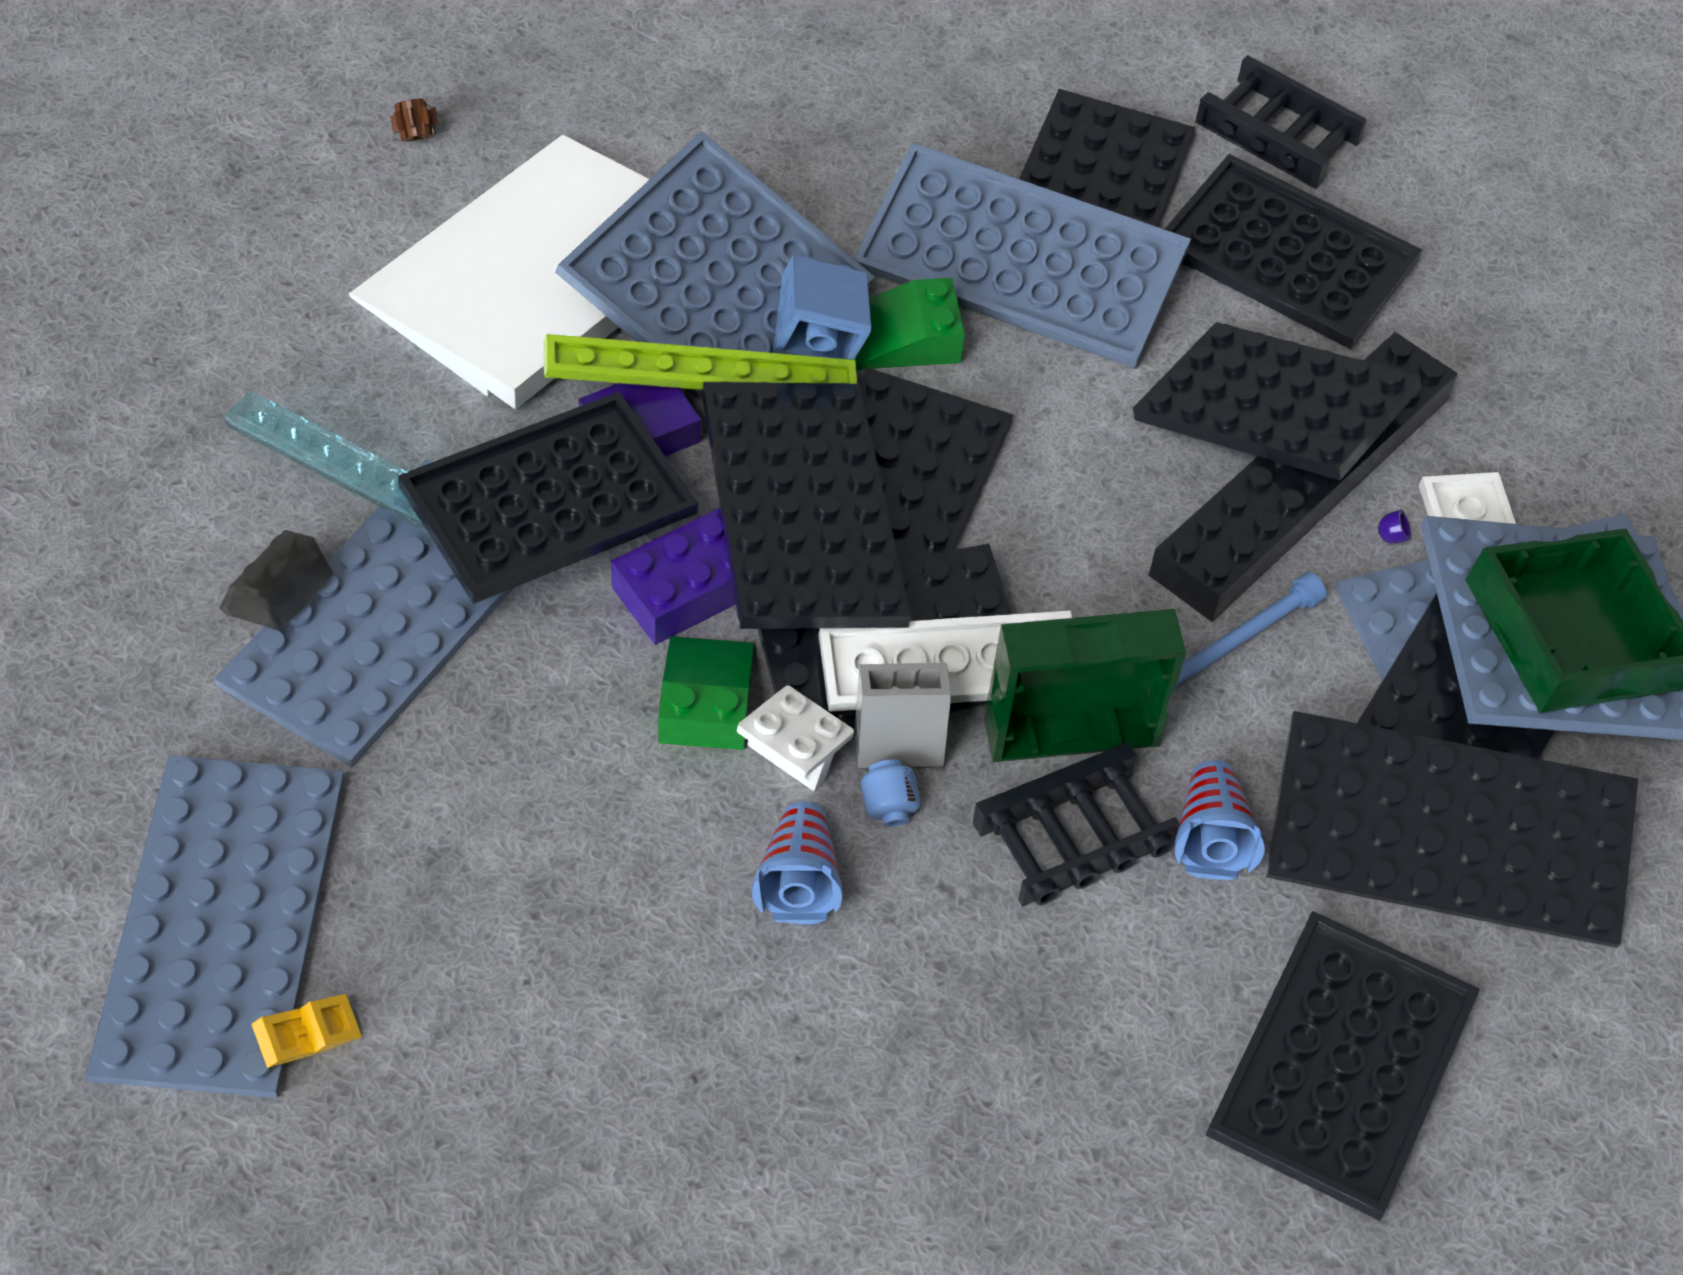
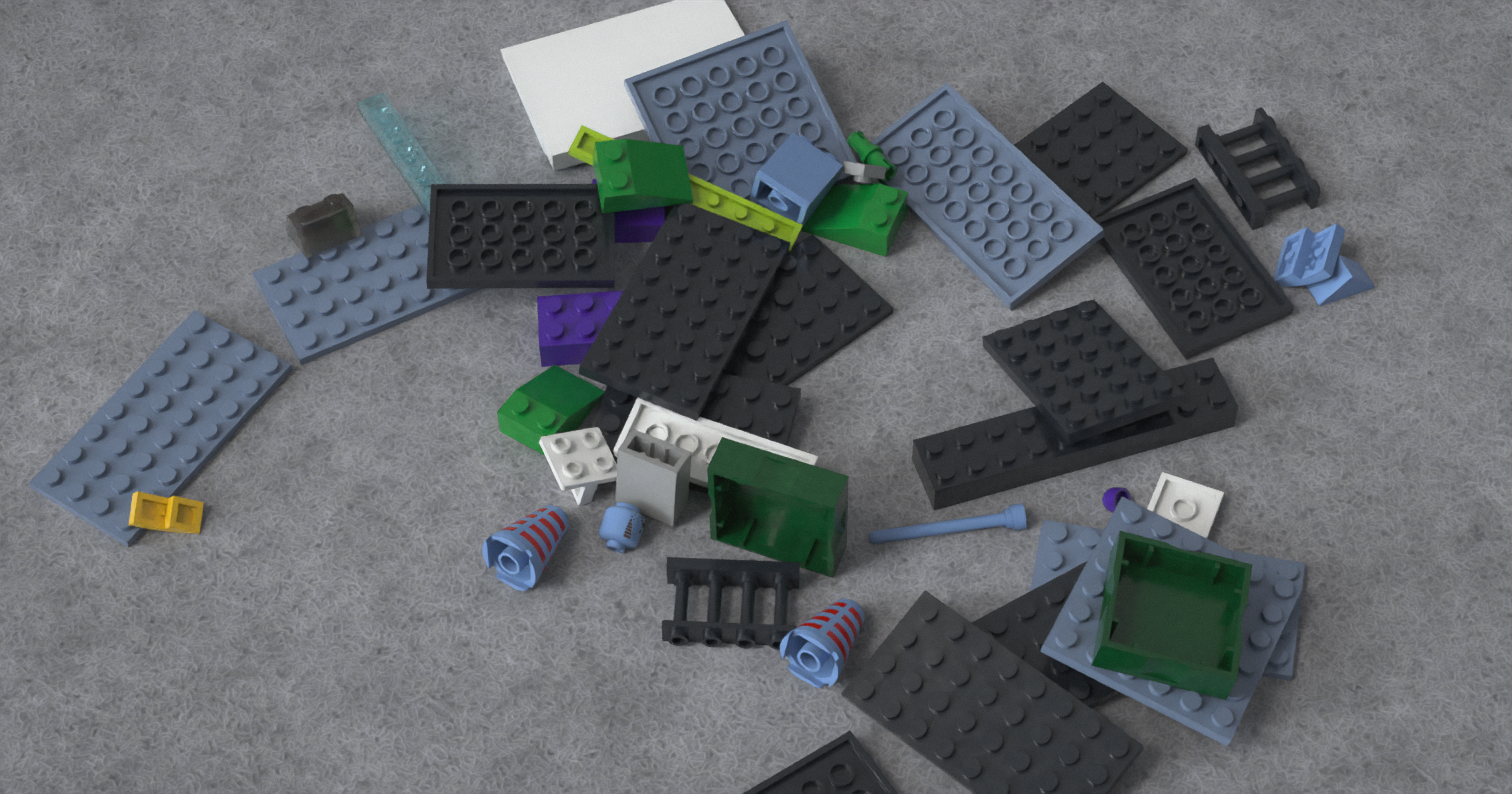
camera: 35 degrees right, 0 degrees up
(649, 369) = (640, 175): none -> green slope
(881, 253) = (871, 153): none -> green pin
(890, 273) = (863, 172): none -> light grey plate
(1401, 193) = (1308, 256): none -> medium blue slope
(1439, 210) = (1347, 280): none -> medium blue slope

